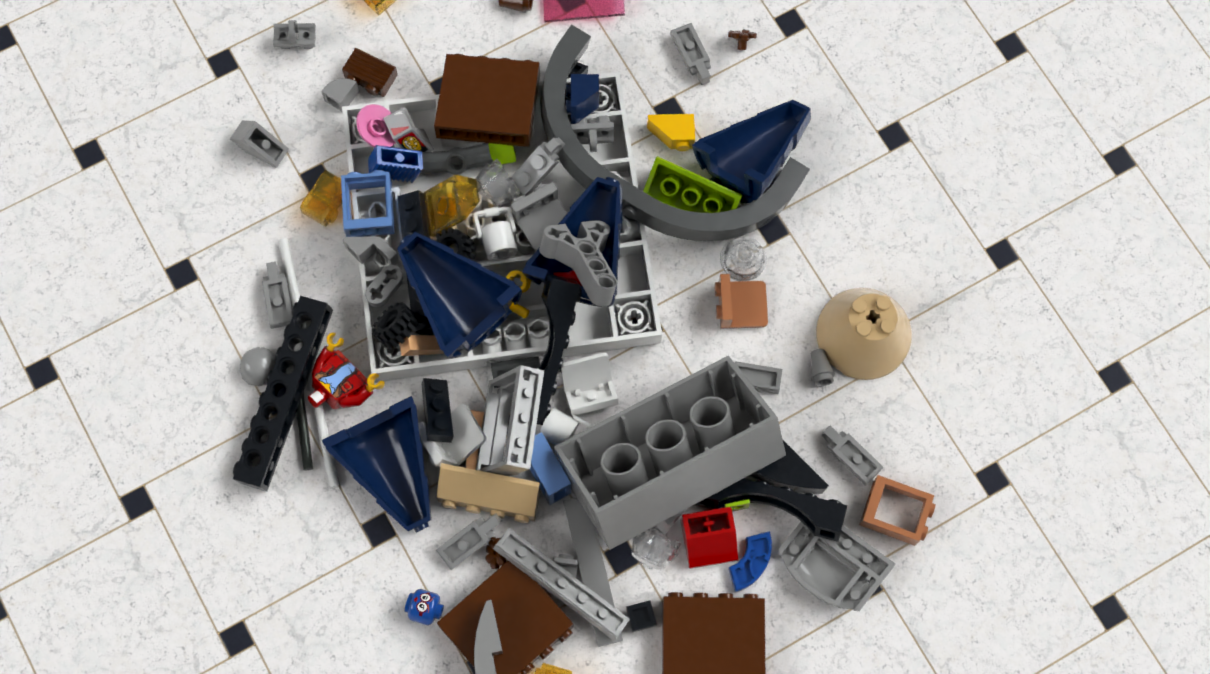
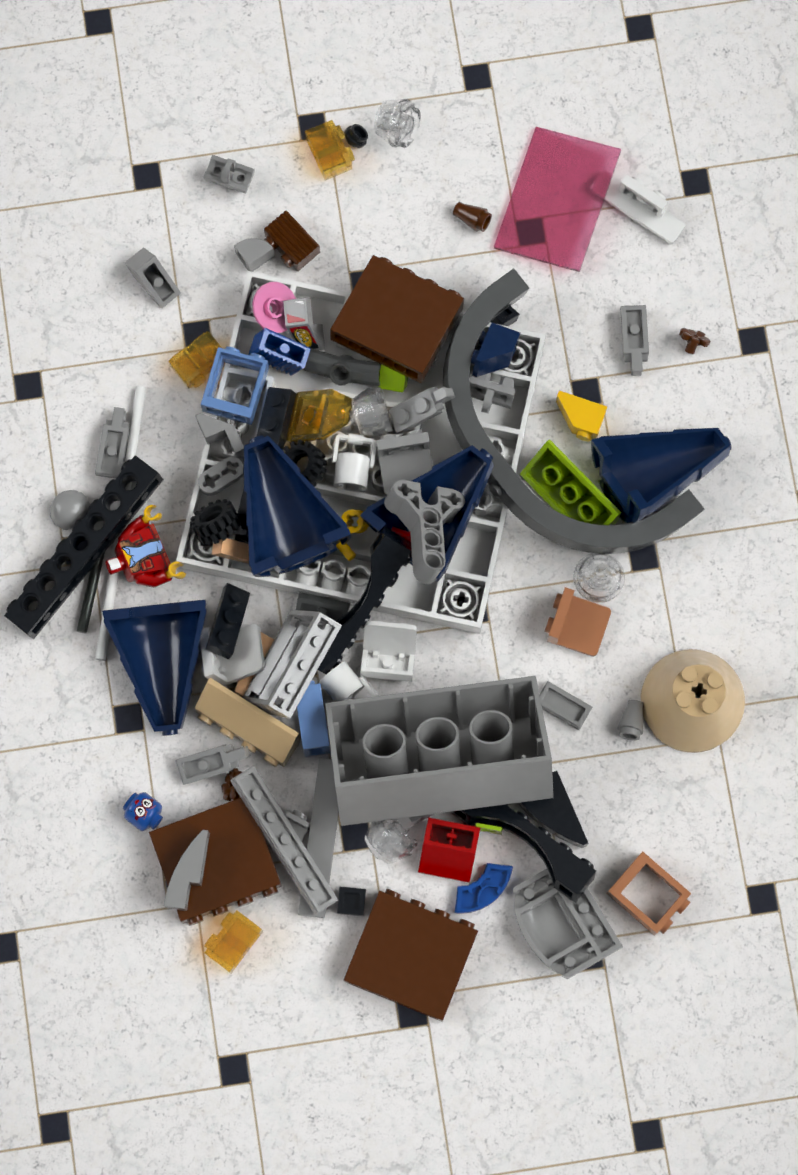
camera: 25 degrees right, 5 degrees up
(852, 455) = (627, 821): light grey hinge -> none

